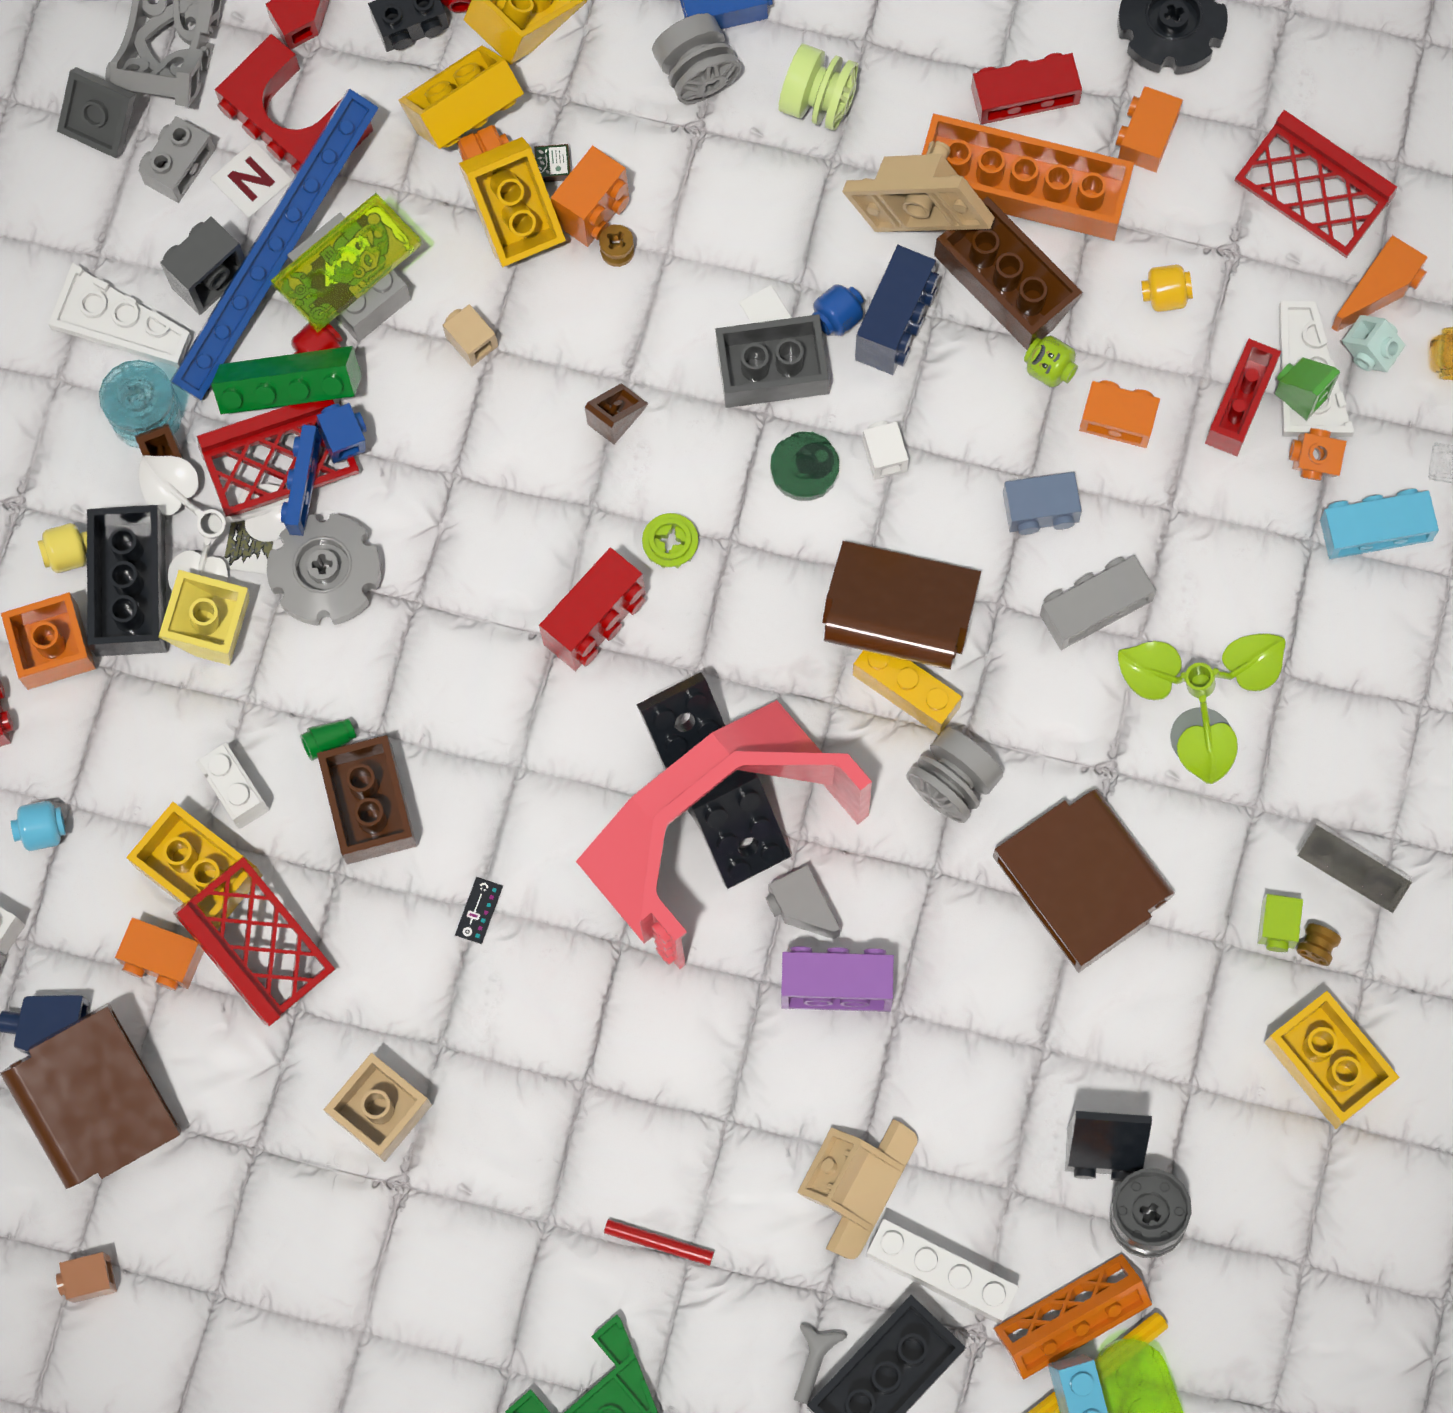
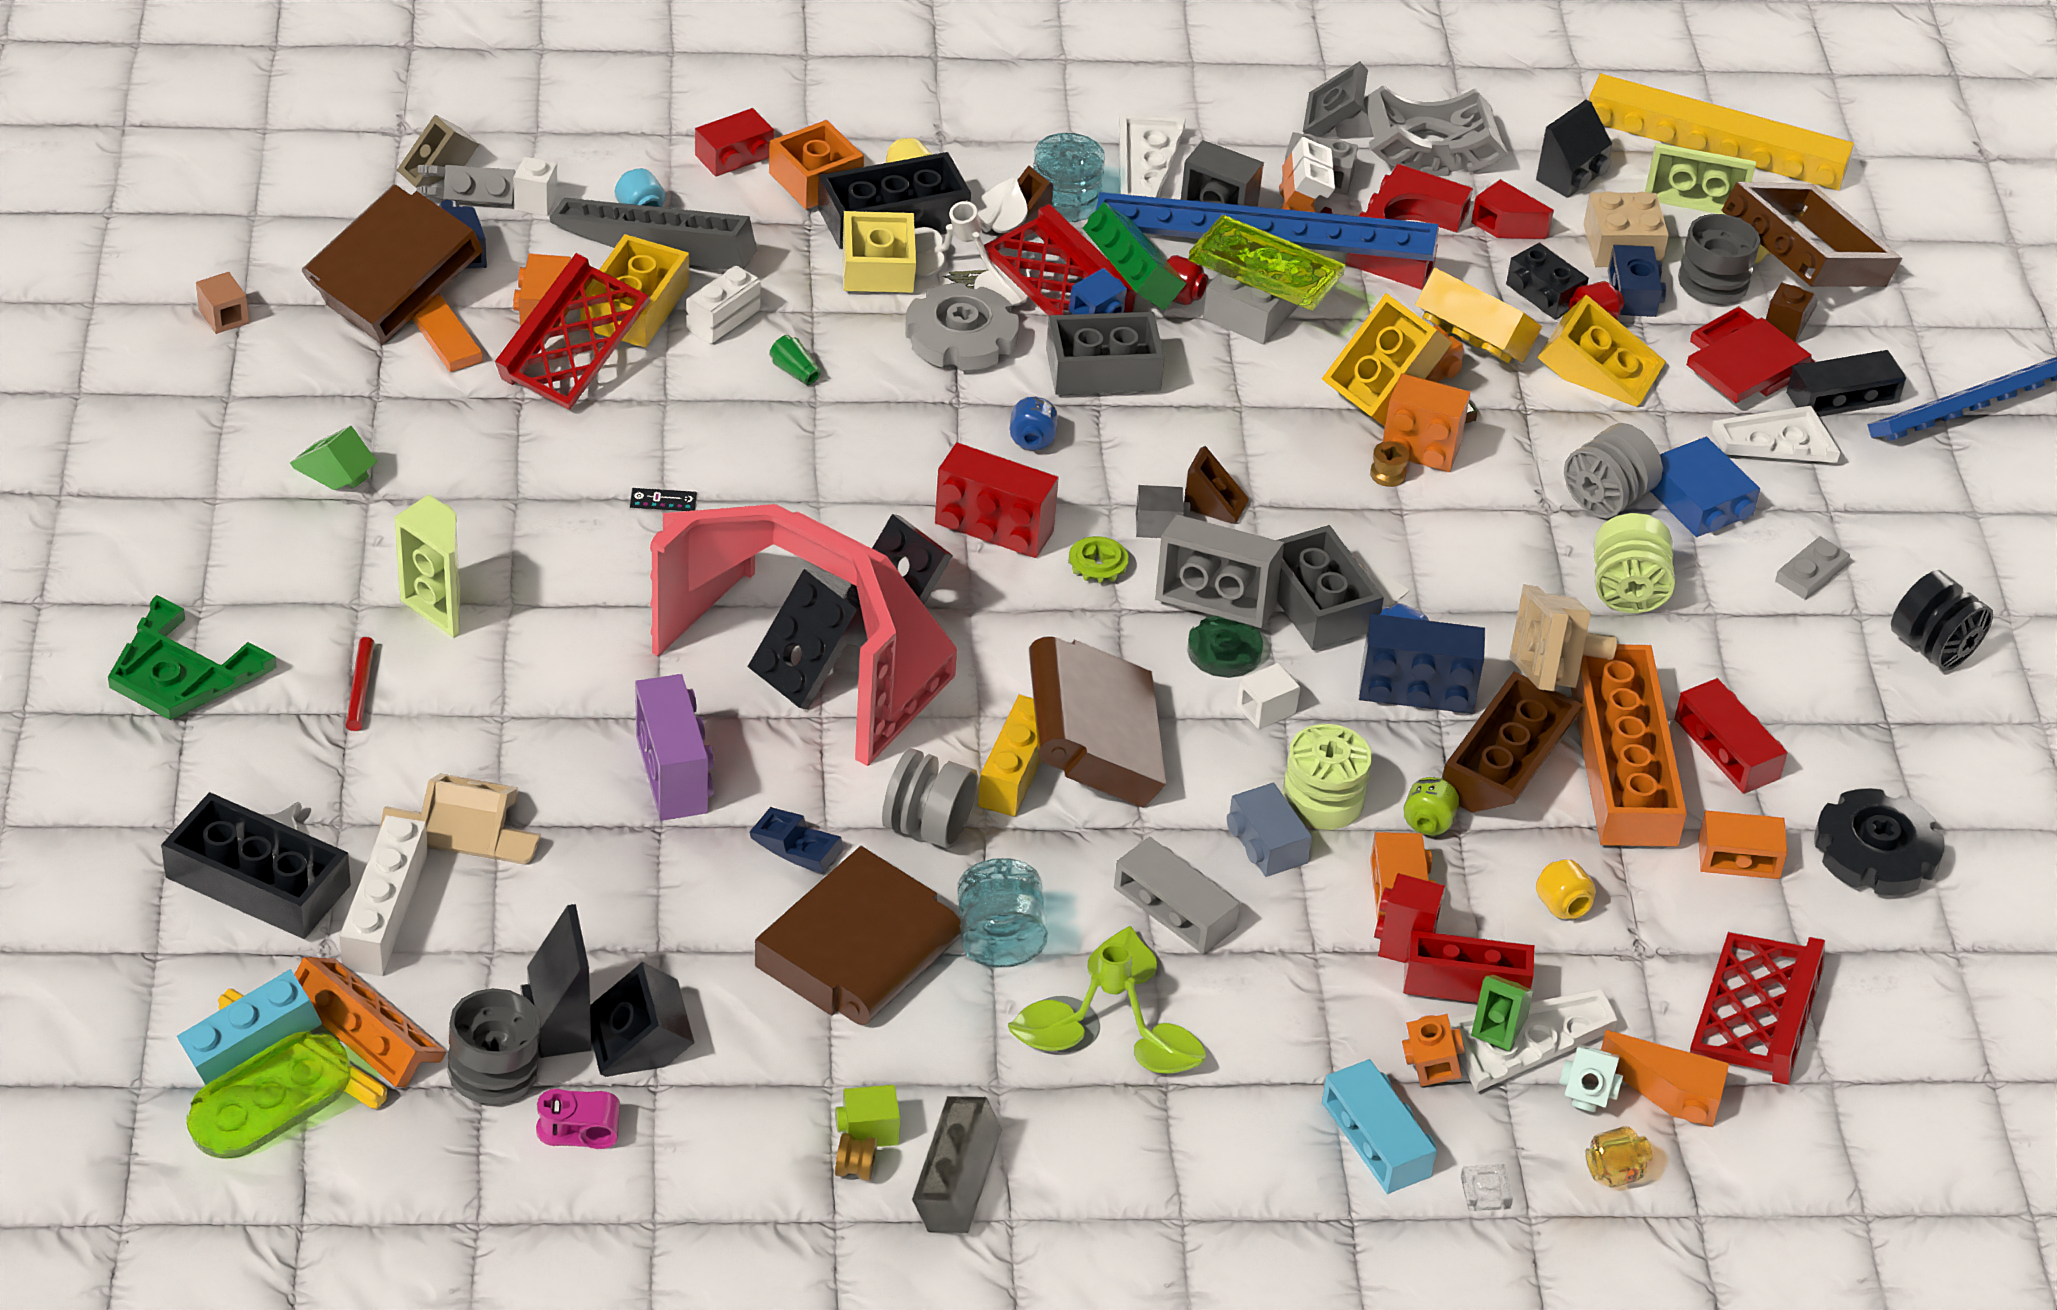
camera: 65 degrees right, 30 degrees down
(102, 824) = (708, 237): none -> dark grey slope
(193, 1063) = (447, 335): none -> orange tile
(216, 181) = (1306, 176): none -> white hips
(301, 480) = (1034, 280): blue plate -> none
(356, 1209) = (336, 460): none -> bright green slope
(366, 799) = (741, 387): reddish brown brick -> none
(377, 1107) = (437, 449): tan brick -> none
(409, 449) = (1104, 353): none -> dark grey brick
(469, 334) = (1243, 379): tan brick -> none
(483, 544) = (1033, 420): none -> blue head
(564, 1142) = (429, 562): none -> yellowish green slope
(629, 467) = (1157, 508): none -> flat silver brick
(743, 442) = (1219, 570): none -> light grey brick
(802, 903) = (753, 719): light grey slope -> none
(950, 900) = (790, 839): none -> dark blue slope
(1007, 453) = (1327, 776): none -> yellowish green wheel
(1100, 753) = (1001, 913): none -> clear light blue wheel
(1139, 1081) = (639, 1023): none -> black slope
(1186, 424) = (1408, 907): none -> red brick
(1228, 1153) = (582, 1118): none -> dark pink piece
(1331, 1059) = (720, 1182): yellow brick -> none

